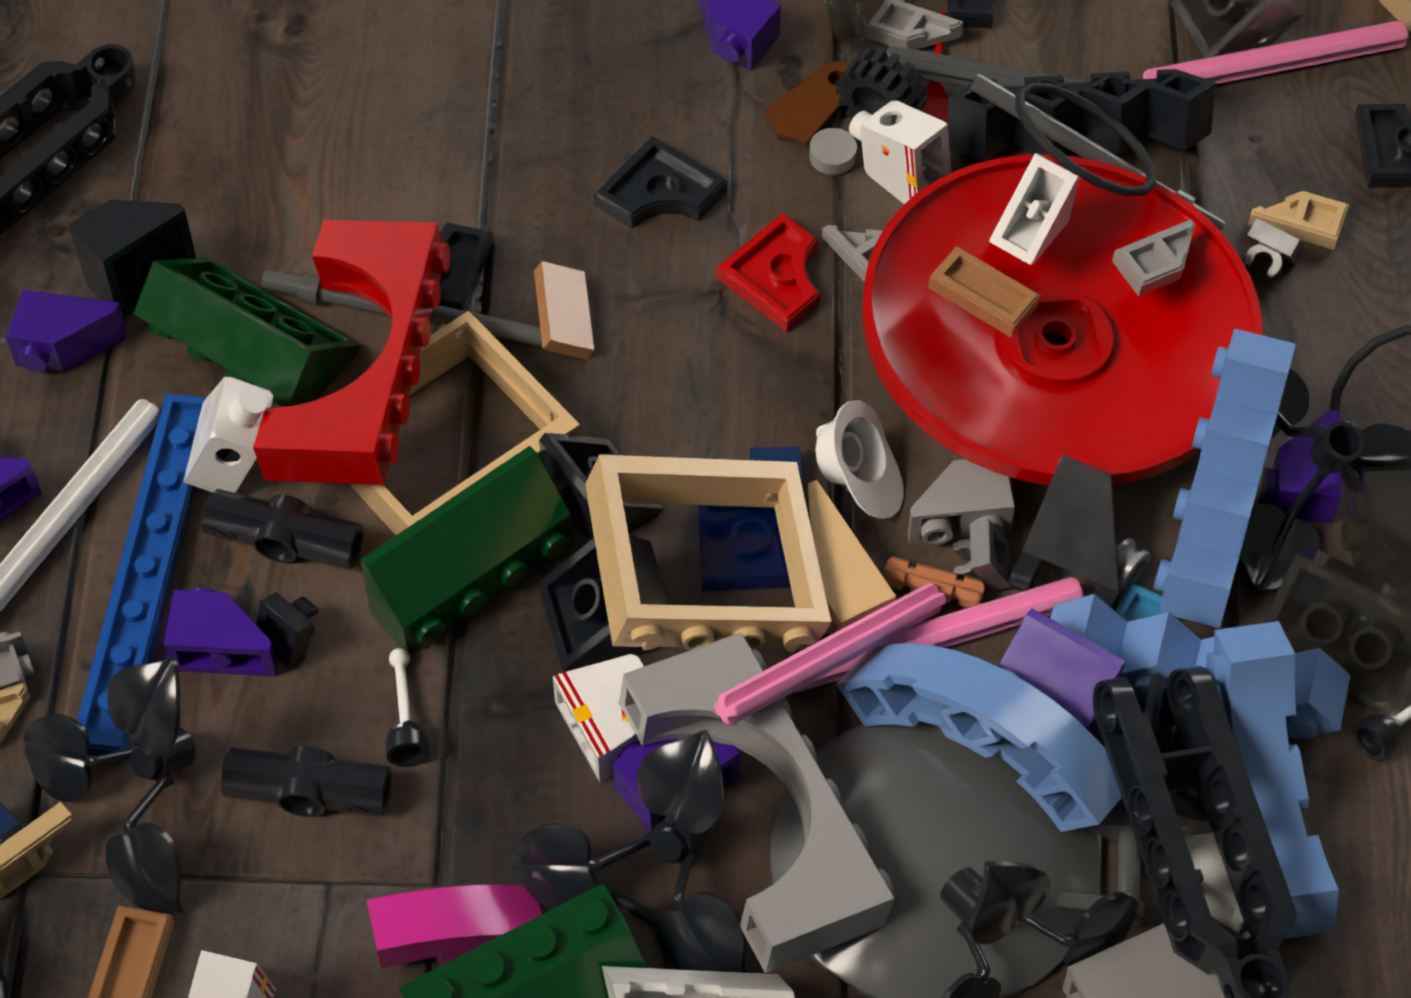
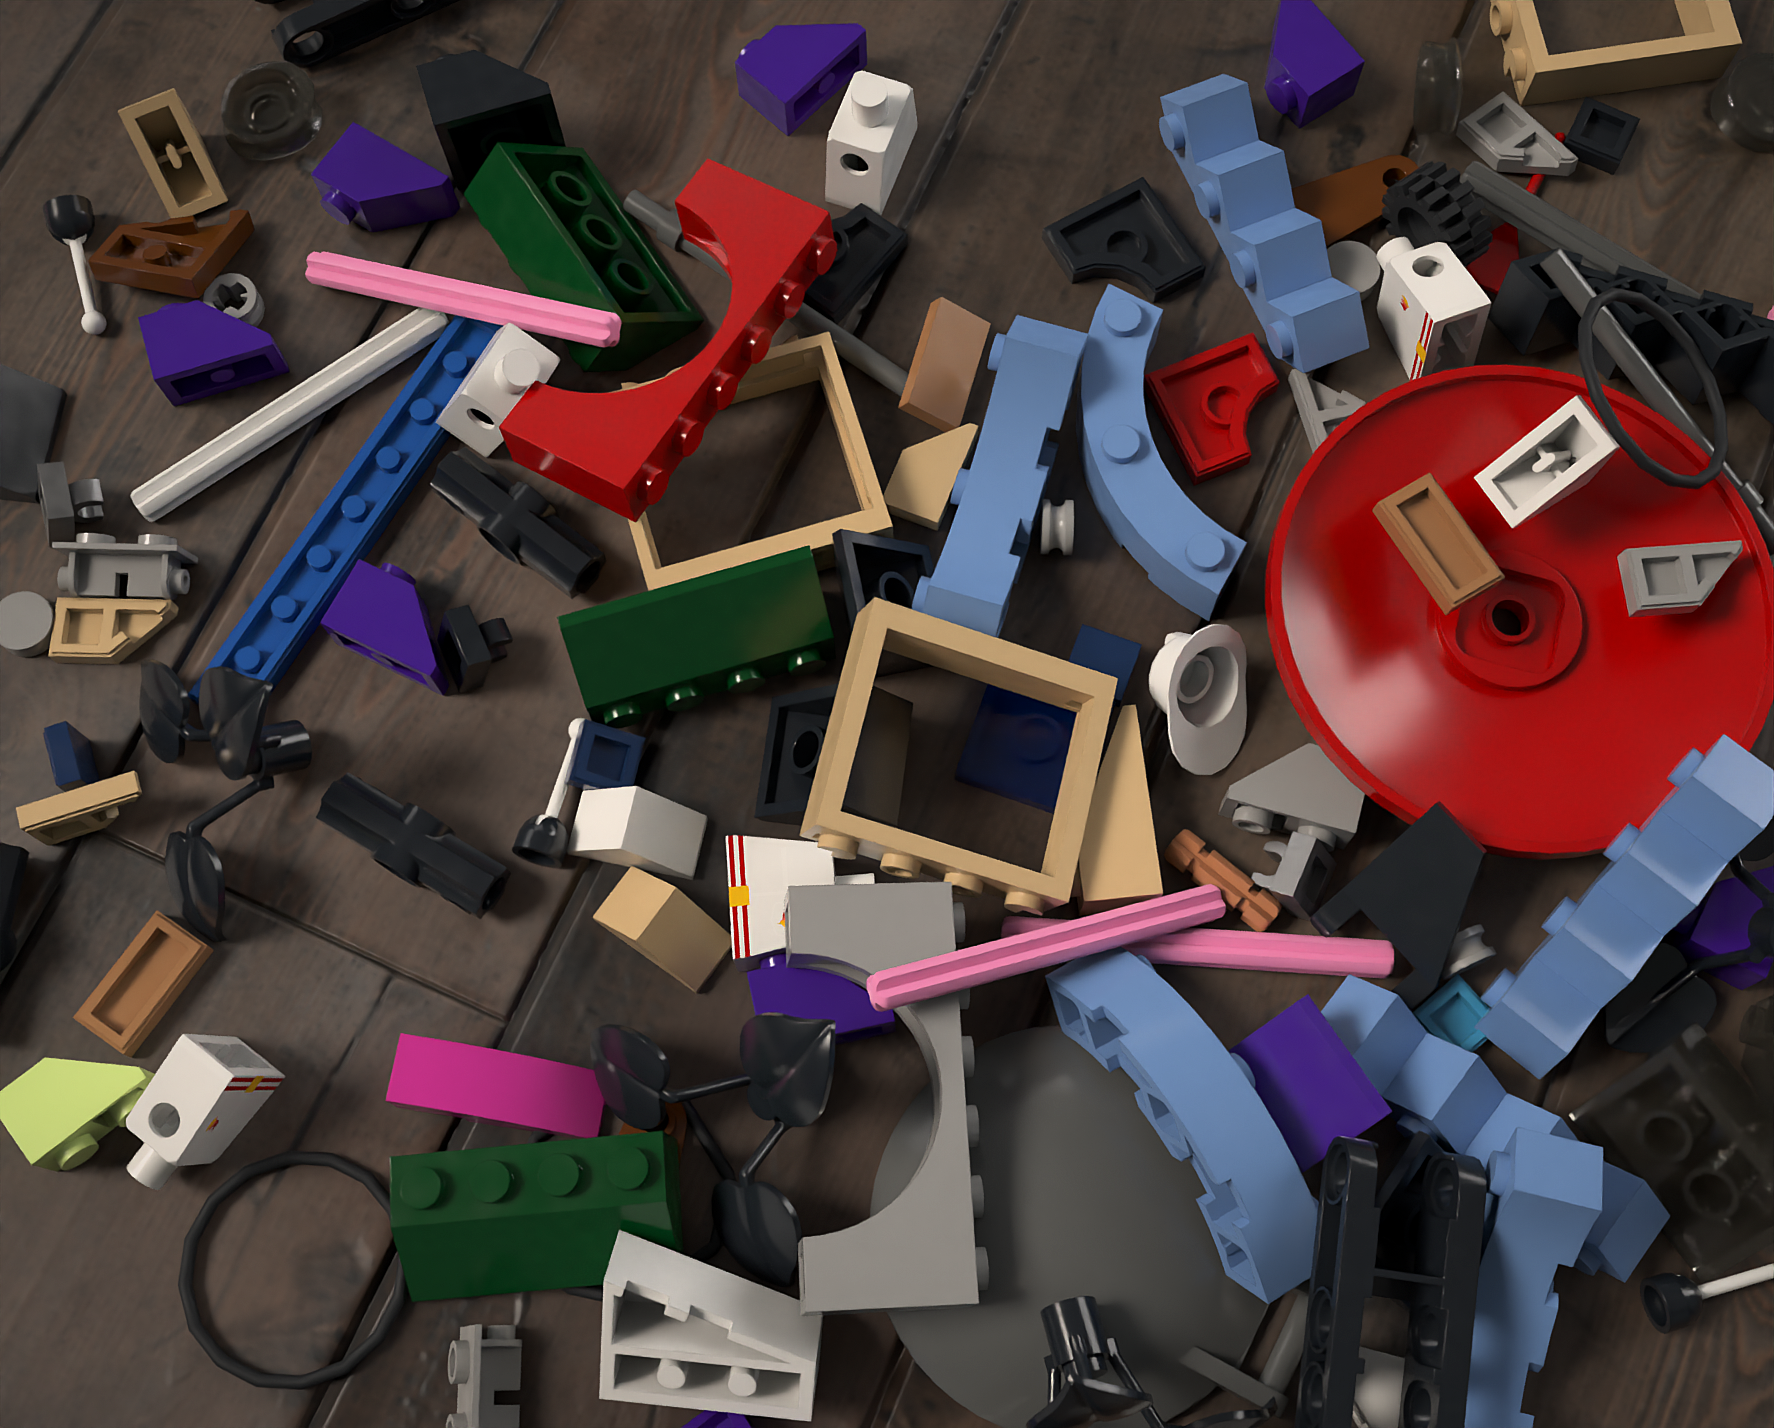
camera: 25 degrees right, 15 degrees up
(167, 383) = (464, 299): none -> bright pink axle
(355, 147) = (799, 69): none -> dark purple slope
(429, 669) = (603, 757): none -> dark blue tile
(436, 157) = (878, 126): none -> white torso
(476, 708) = (638, 830): none -> white slope
(530, 766) = (665, 927): none -> tan slope
(586, 389) = (926, 476): none -> tan tile
(647, 358) = (1007, 476): none -> medium blue brick
(700, 389) = (1056, 527): none -> light grey bush
(738, 336) = (1127, 479): none -> medium blue brick
(743, 132) = (1270, 244): none -> medium blue brick

